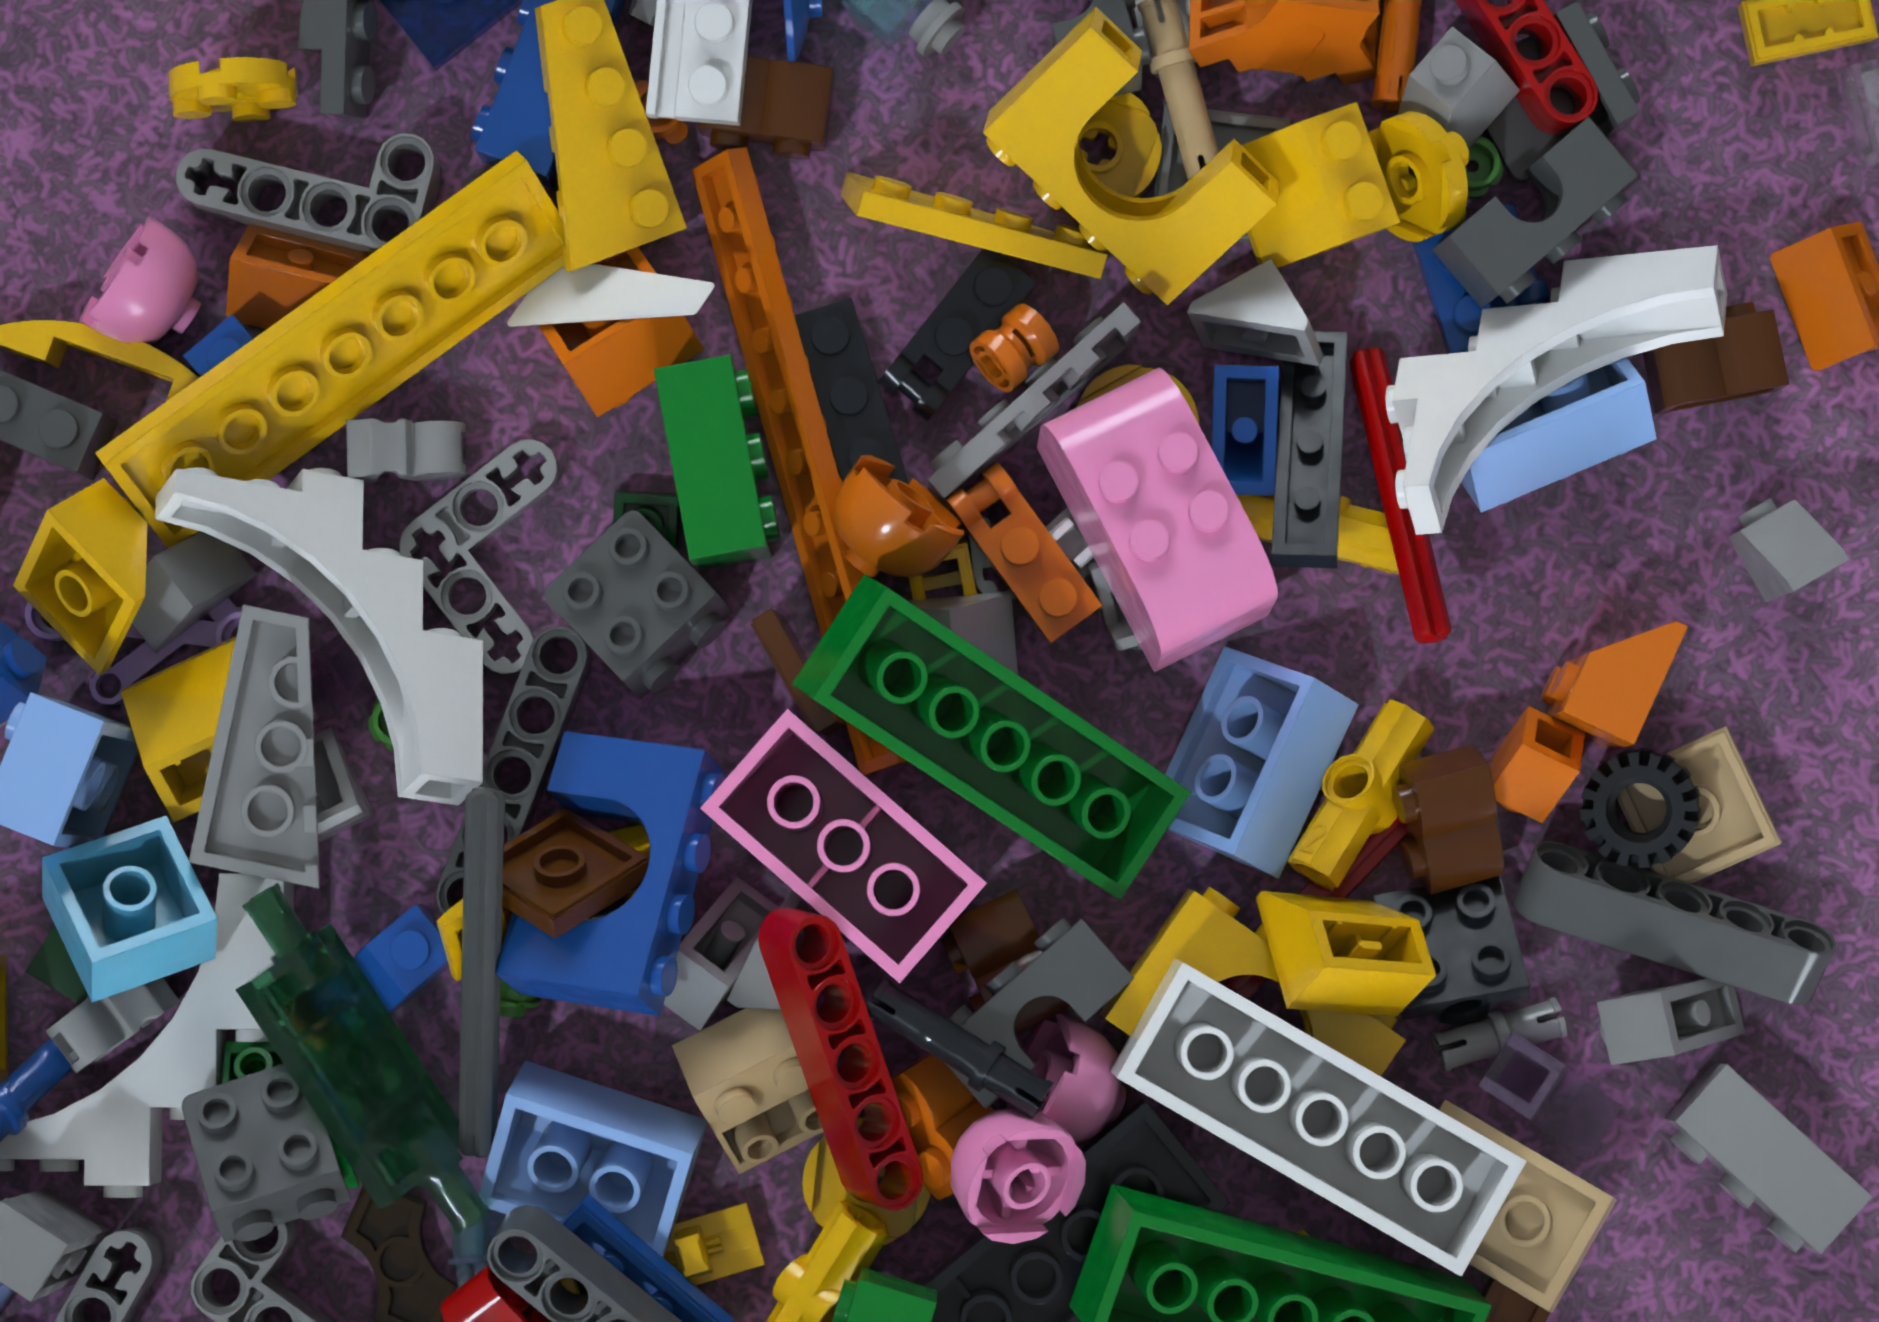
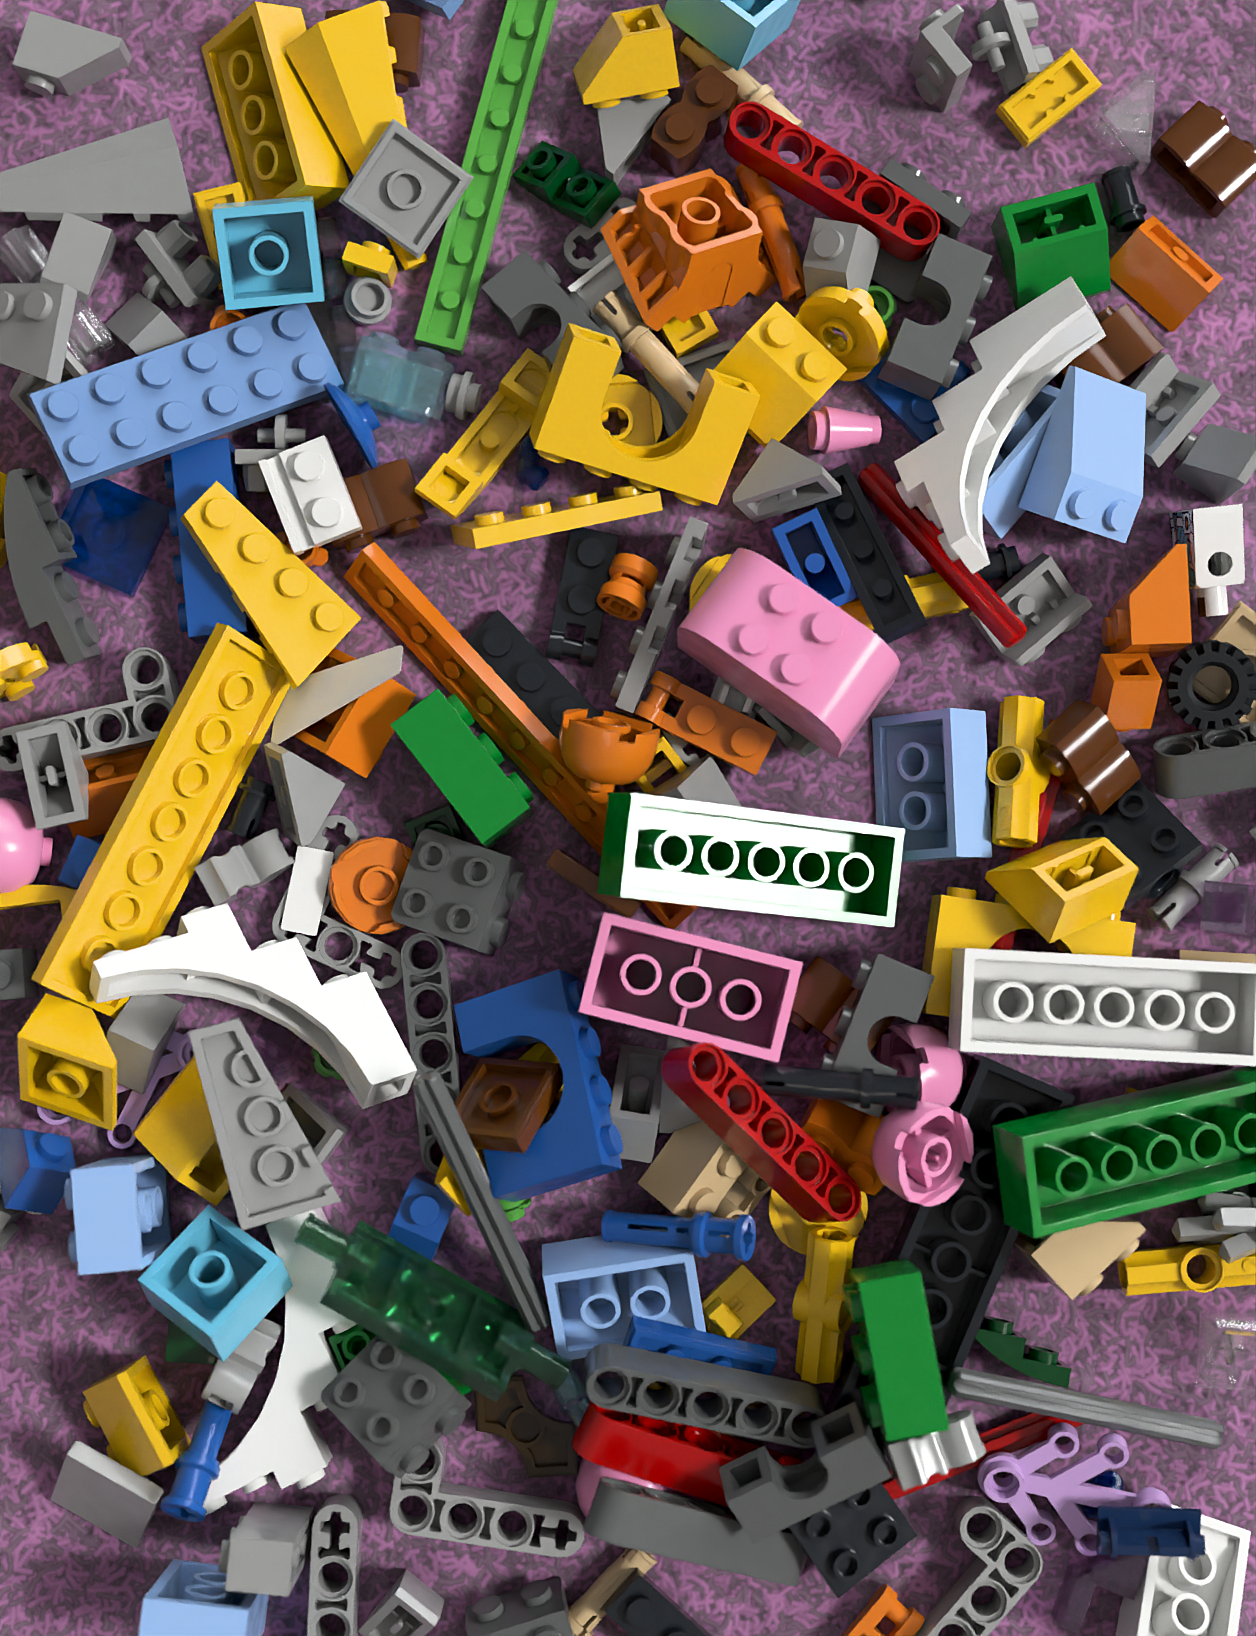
camera: 30 degrees left, 0 degrees up
(239, 232) = (54, 775): none -> light grey slope
(447, 383) = (250, 807): none -> black pin
(463, 513) = (307, 890): none -> white sticker
(514, 396) = (301, 793): none -> light grey slope
(537, 538) = (367, 881): none -> orange tile
(708, 1135) = (702, 1235): none -> blue pin
(939, 96) = (489, 440): none -> yellow slope
(971, 154) = (528, 468): none -> clear blue arm
(1240, 90) = (689, 336): none -> yellow plate
(1361, 290) = (841, 430): none -> bright pink cone
(1464, 540) = (1003, 563): none -> black pin
(1489, 616) = (1043, 603): none -> light grey bracket
(1633, 469) = (1091, 457): none -> light blue slope
(1723, 194) = (1051, 240): none -> green slope
(1724, 627) = (1216, 536): none -> white torso
(1745, 455) = (1172, 406): none -> light grey bracket
(1834, 185) = (1123, 199): none -> black pin

